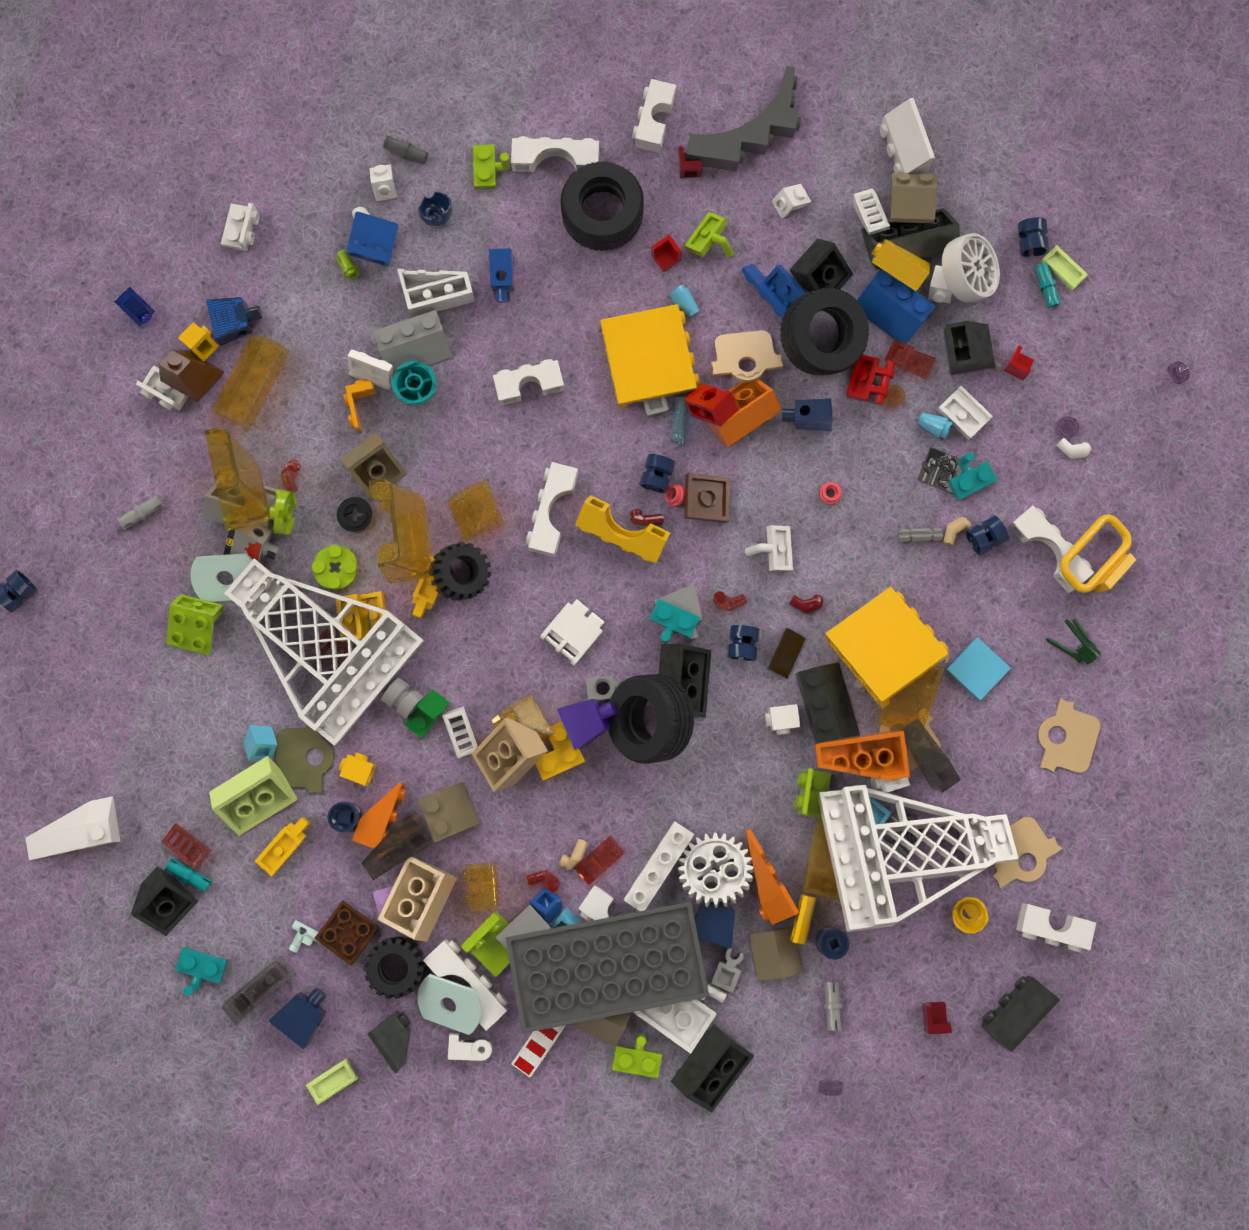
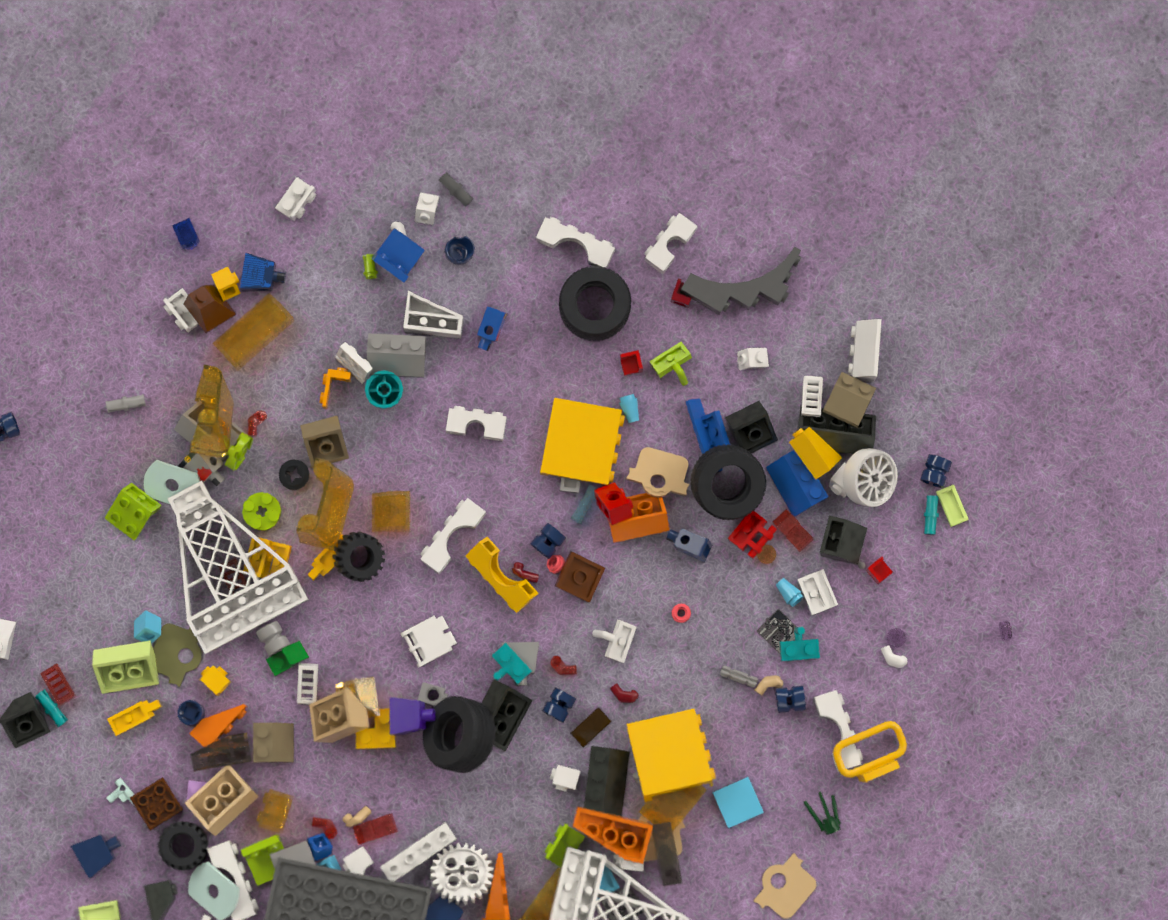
camera: 20 degrees right, 0 degrees up
(200, 967) = (33, 783): teal plate -> none
(257, 990) = (70, 819): clear smoke slope -> none
(486, 167) = (516, 229): lime plate -> none

